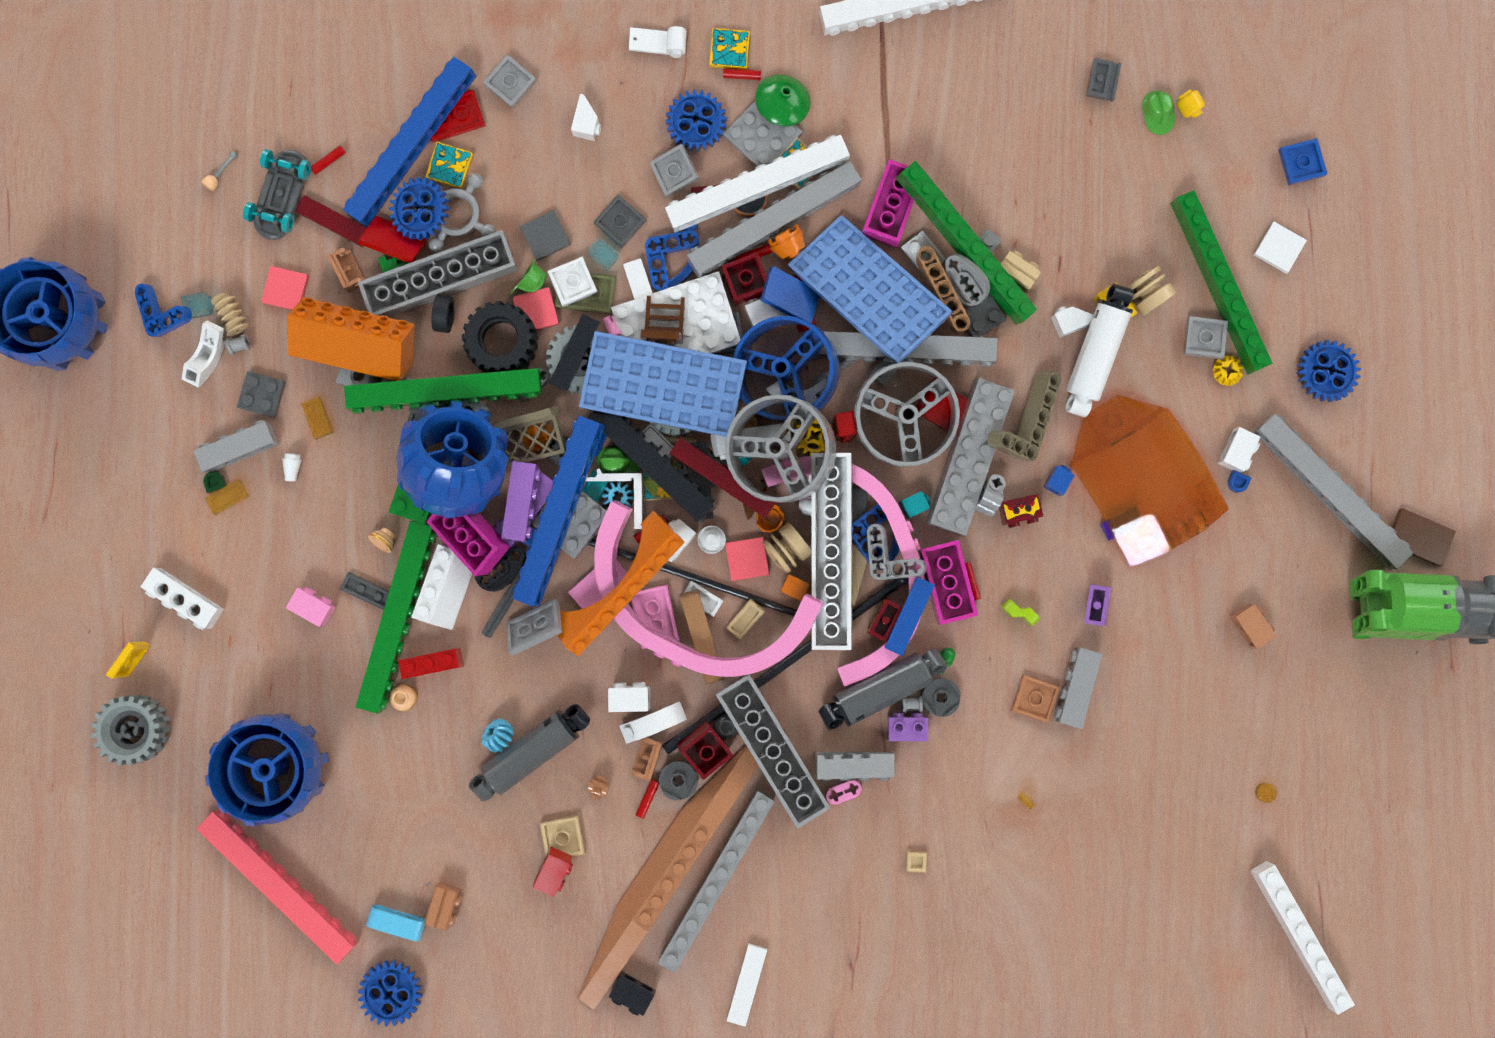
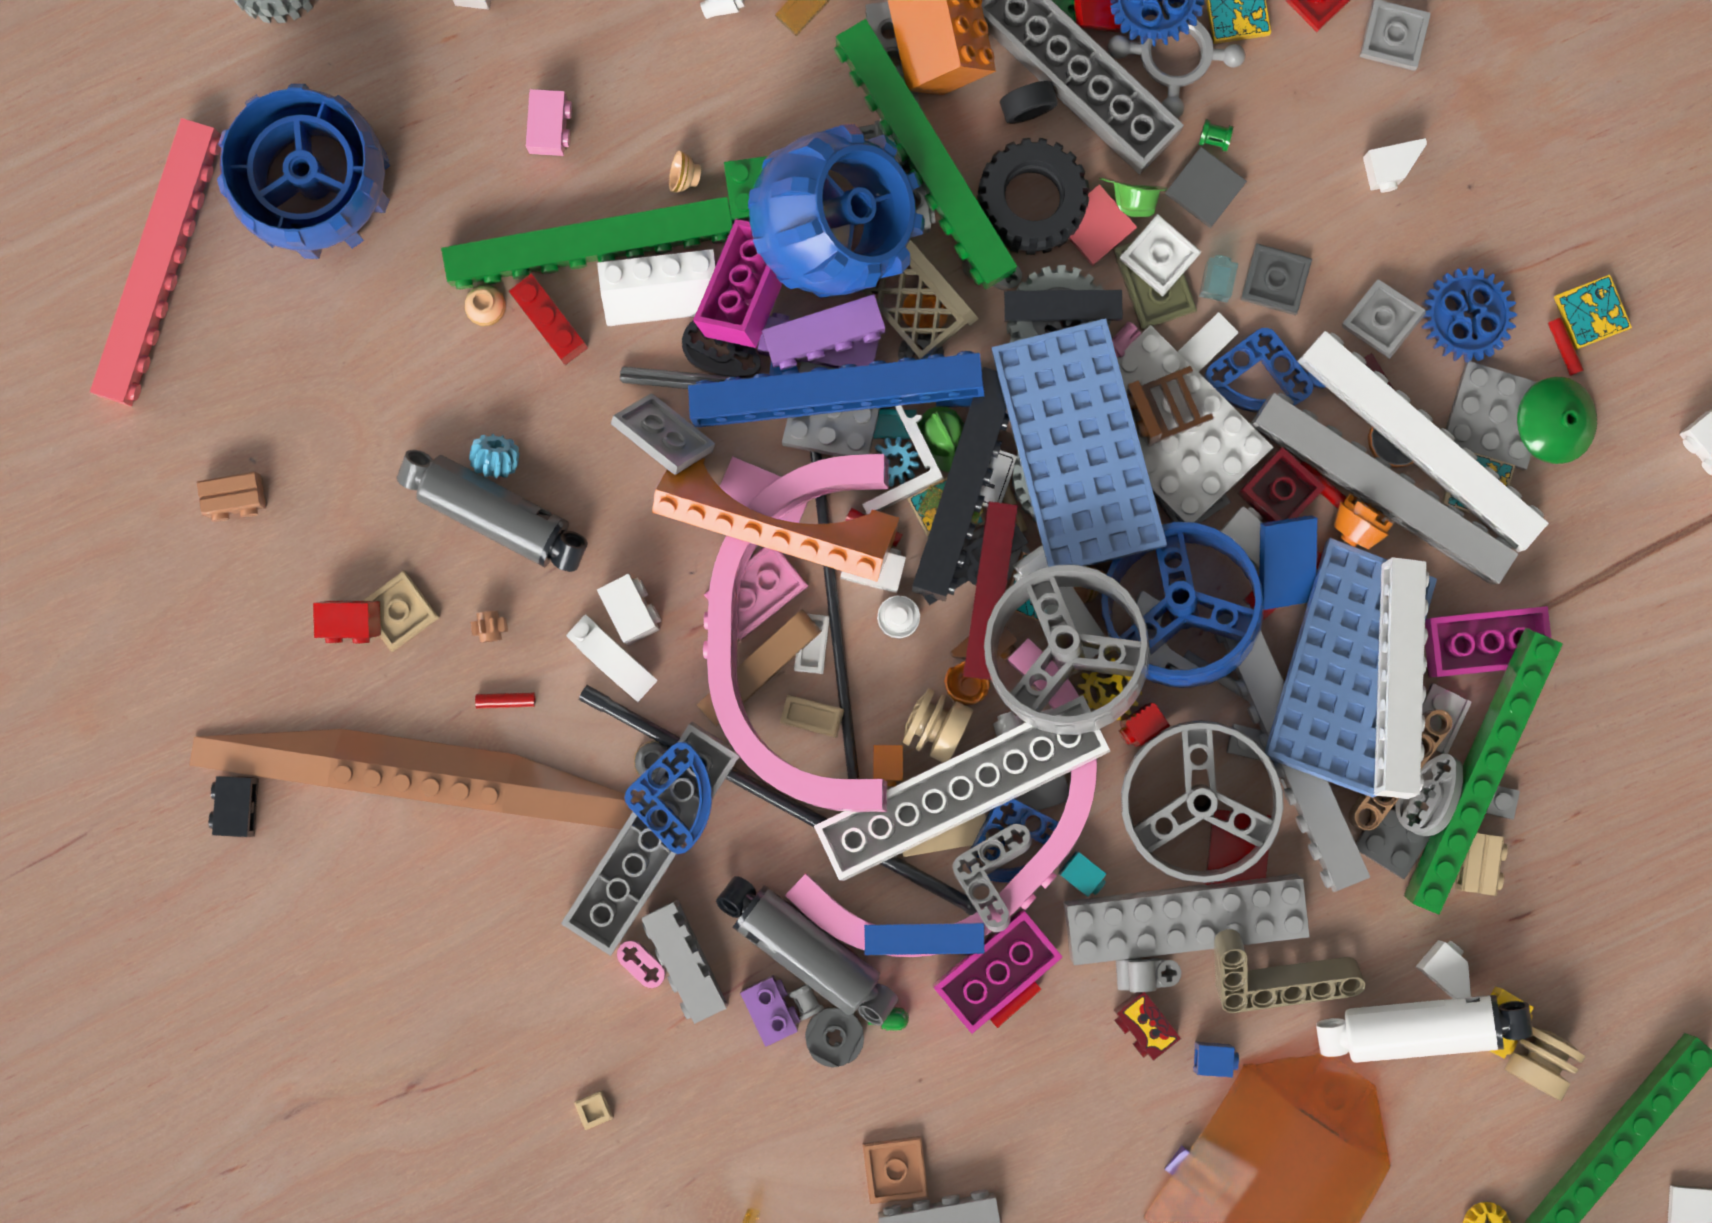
camera: 65 degrees right, 0 degrees up
(365, 590) = (603, 183): dark grey tile -> none
(376, 1004) = (108, 492): blue gear -> none
(395, 922) = (181, 443): medium azure beam -> none
(517, 214) = (1216, 135): none -> green bush
(646, 758) = (559, 673): nougat hinge -> none
(659, 42) = (1553, 210): white door -> none
(668, 785) = (538, 742): dark grey plate -> none
(704, 750) = (607, 746): dark red brick -> none
(716, 880) = (439, 847): light grey brick -> none
(745, 734) = (653, 791): none -> blue beam
(746, 984) = (318, 956): white tile -> none
(747, 559) = (895, 678): coral tile -> none
(884, 620) = (902, 908): dark red brick -> none
(890, 263) = (1401, 678): none -> white brick
(1027, 614) = (1006, 1102): lime piece -> none
(1098, 605) = (1067, 1196): medium lavender brick -> none
(1205, 337) = (1517, 1172): light grey plate -> none

